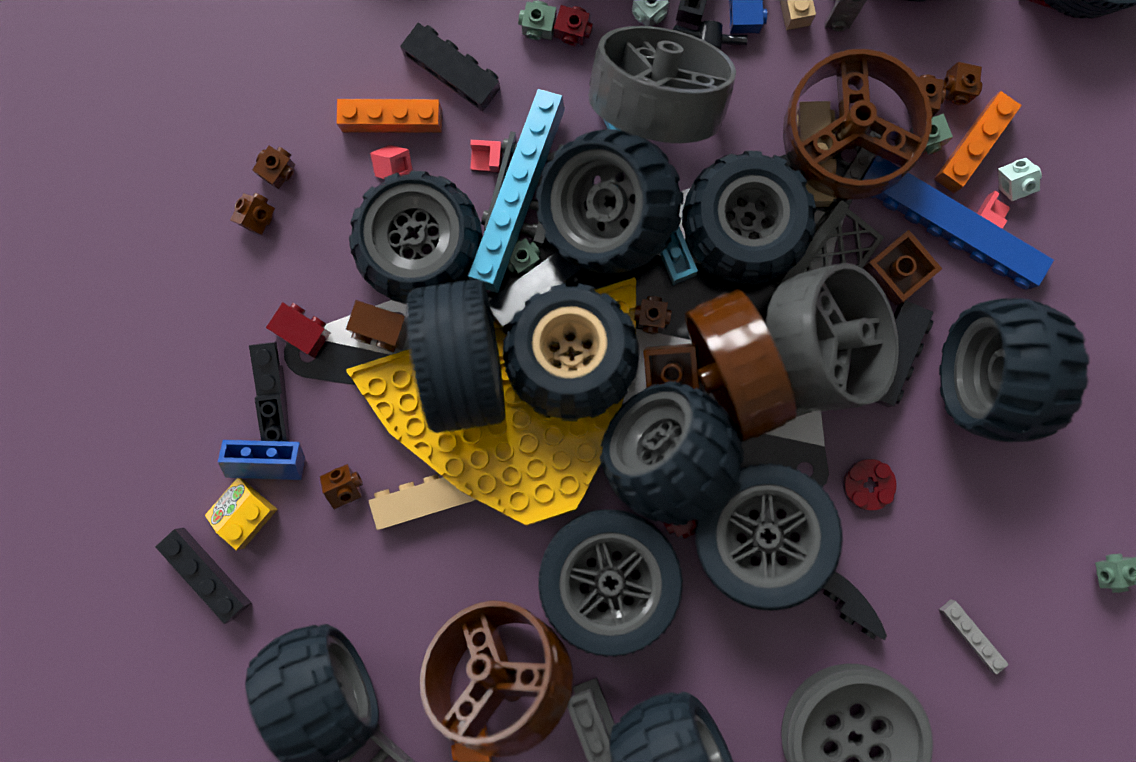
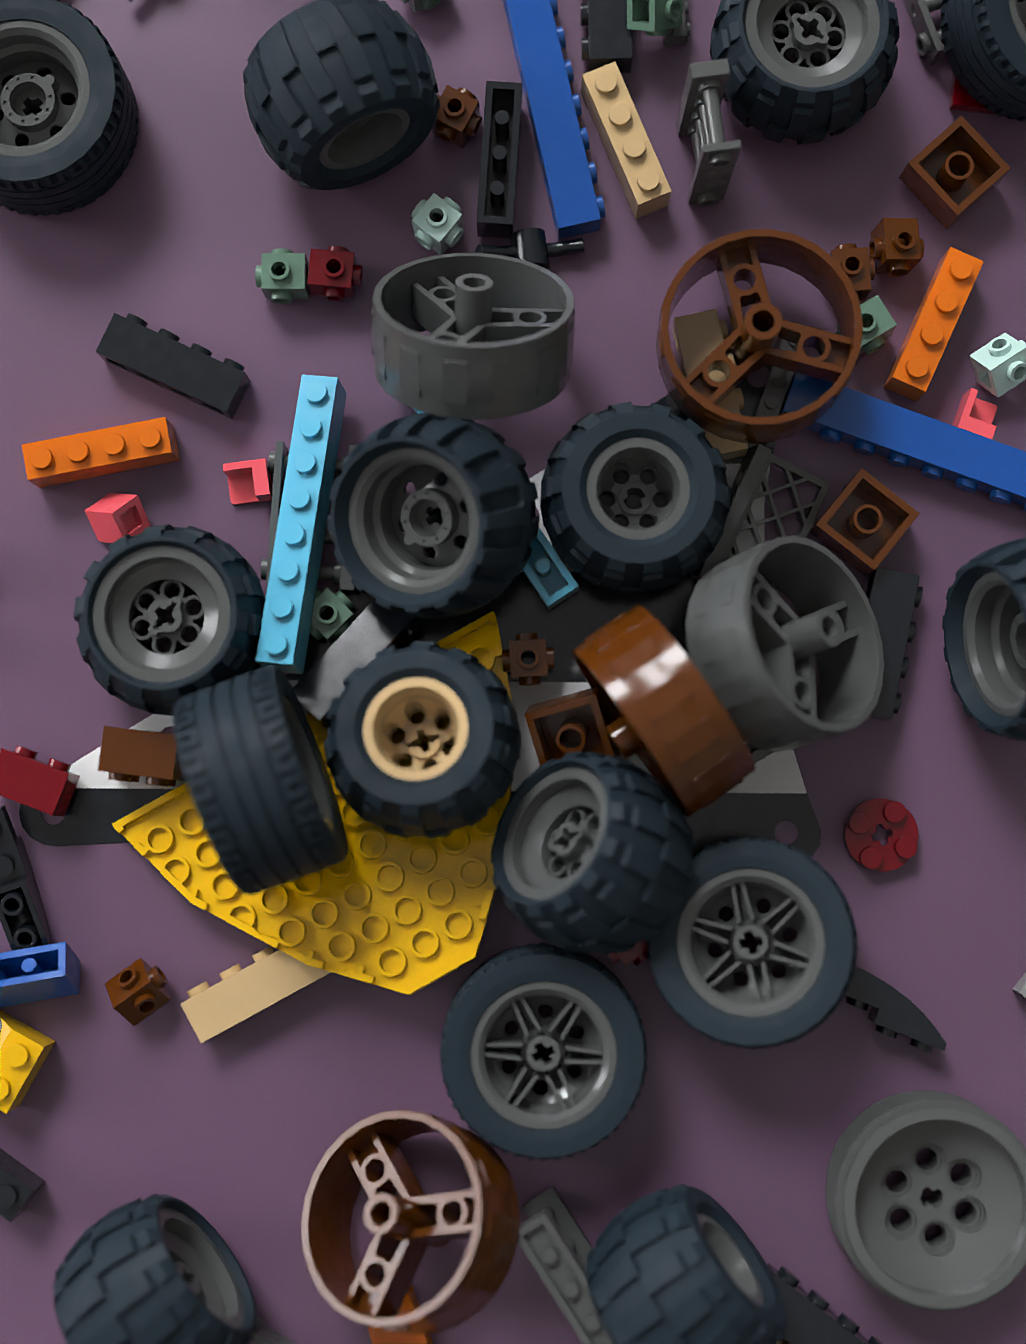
camera: 15 degrees left, 0 degrees up
(1013, 40) = (954, 172): none -> reddish brown brick

